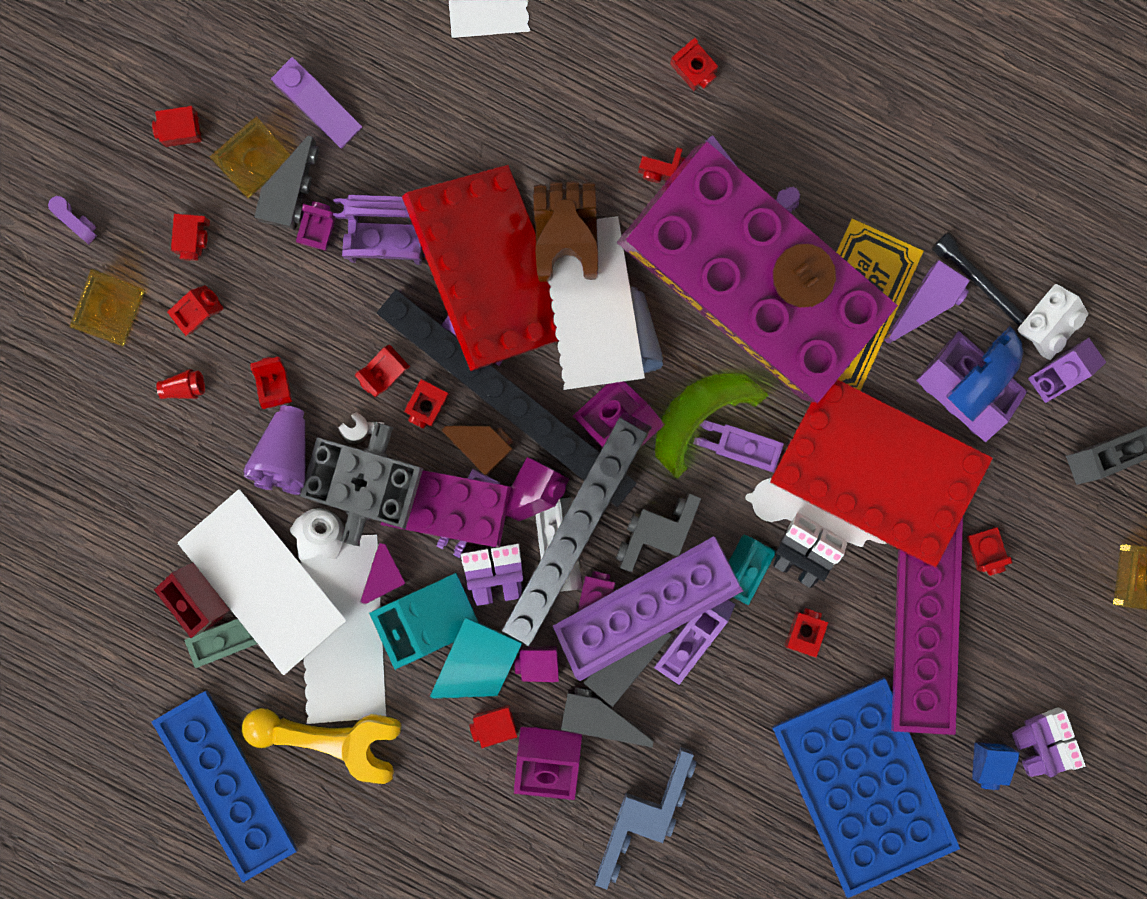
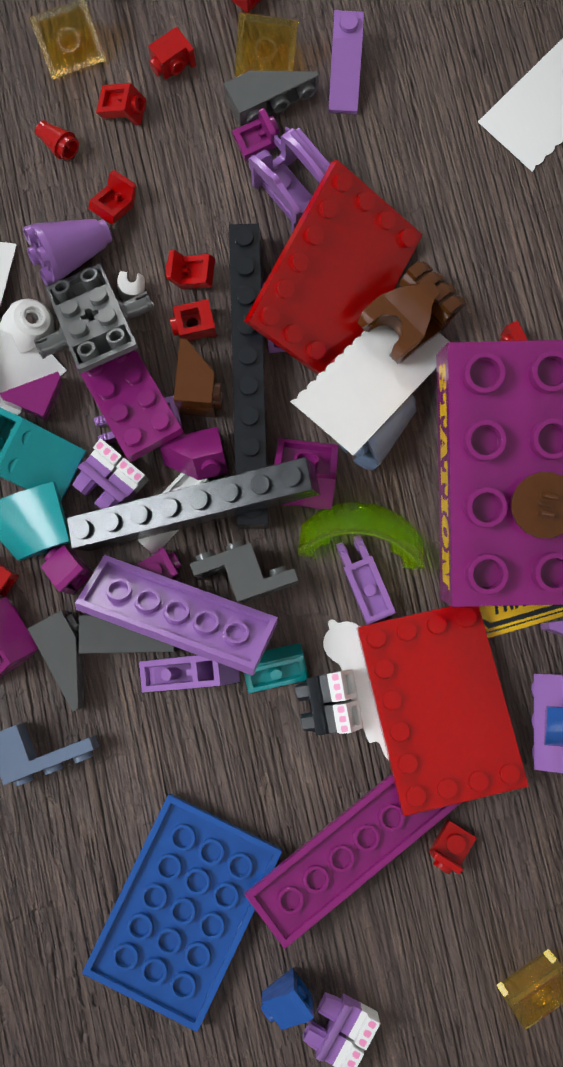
camera: 50 degrees right, 5 degrees down
(806, 644) = (256, 765): red brick -> none

